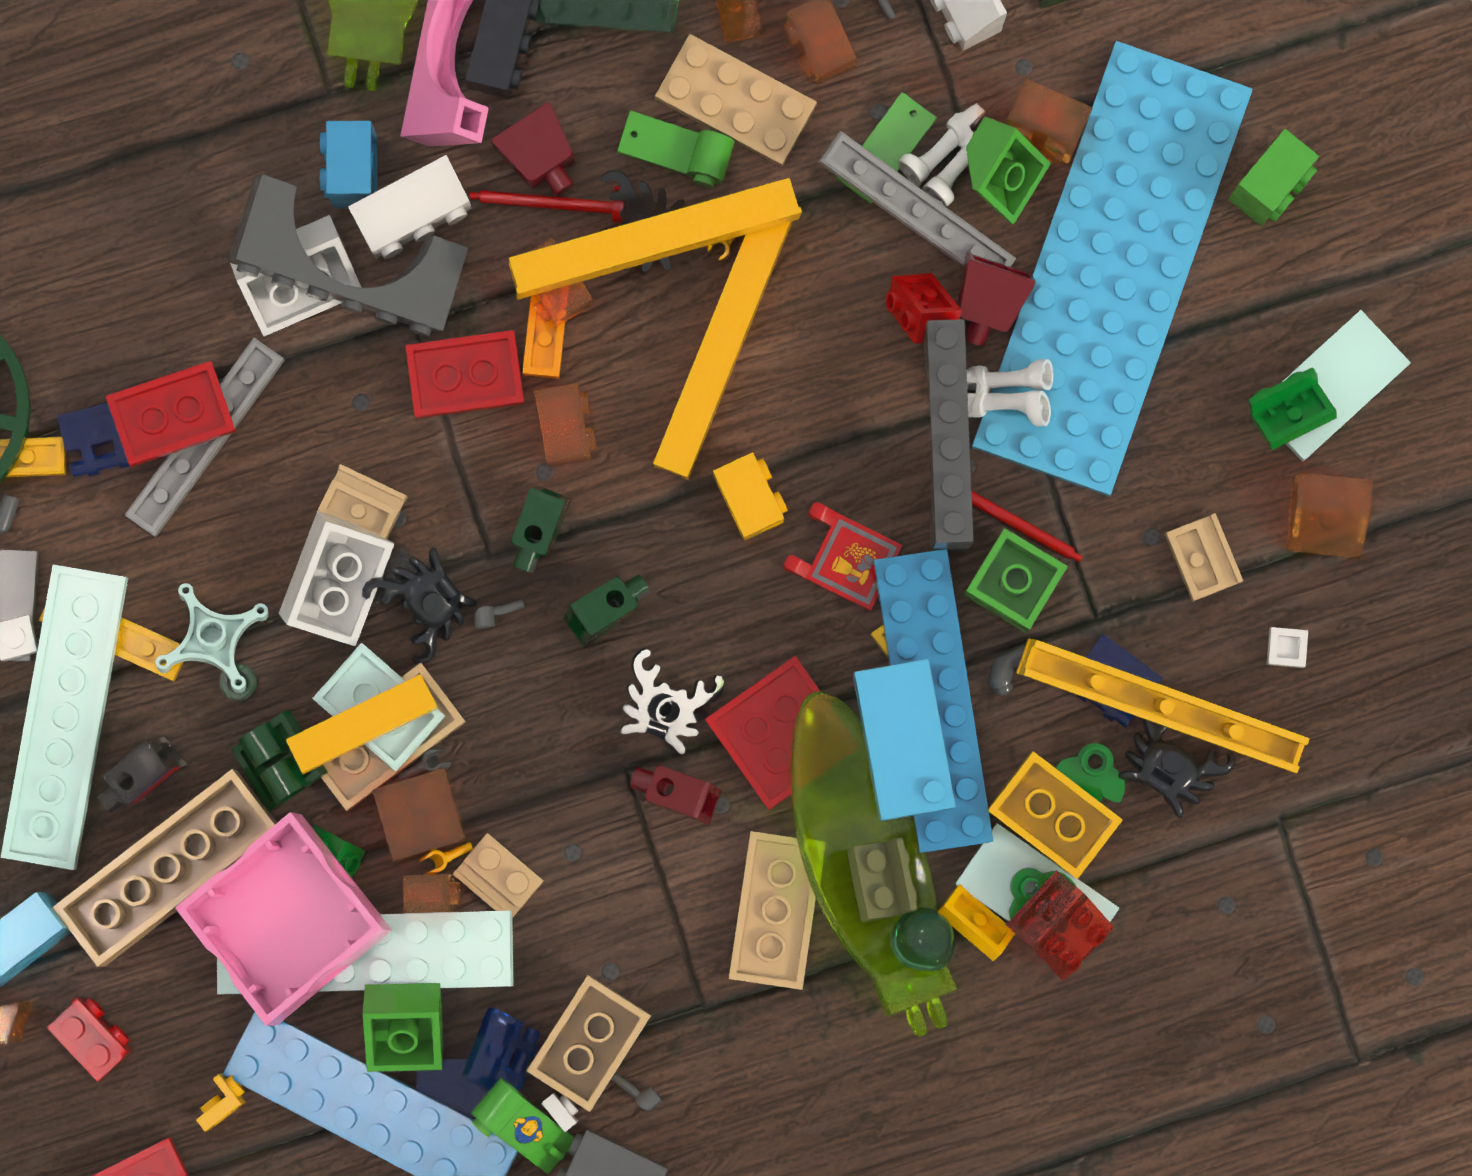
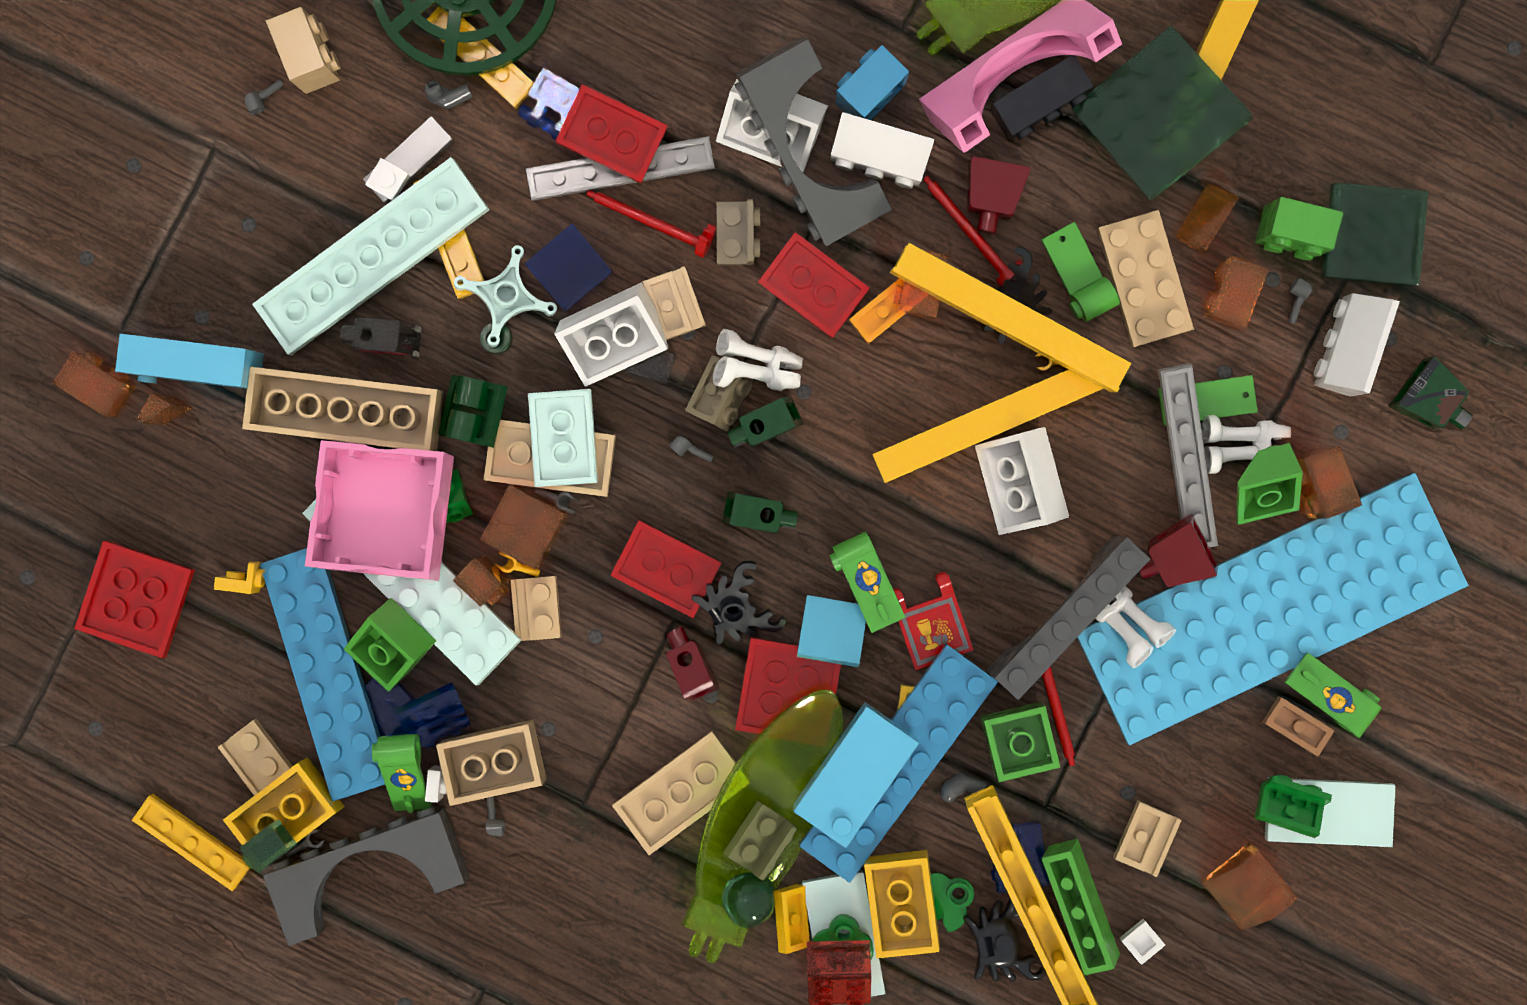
camera: 50 degrees right, 5 degrees up
(91, 1037) = (204, 464): bracket -> none
(242, 561) = (568, 267): none -> clear blue plate
(335, 432) = (701, 243): none -> red piece
(356, 394) = (736, 233): none -> dark tan bracket
(361, 724) = (540, 439): yellow tile -> none
(428, 596) = (658, 399): black animal -> none
(475, 540) = (717, 403): none -> dark tan bracket
(496, 465) = (729, 368): none -> white piece
(563, 424) = (842, 375): clear orange brick -> none
(574, 733) = (665, 568): none -> red plate
(749, 495) = (911, 530): yellow brick -> none
(755, 573) = (867, 581): none -> bright green door
(767, 645) = (832, 631): none -> medium azure tile
(800, 364) = (1022, 481): none -> white slope
(919, 299) = (1132, 516): red bracket -> none
(1205, 667) = (1081, 907): none -> bright green brick
(1232, 340) = (1298, 726): none -> medium nougat plate
(1235, 285) = (1334, 695): none -> bright green door
(1268, 185) = (1427, 656): bright green brick -> none

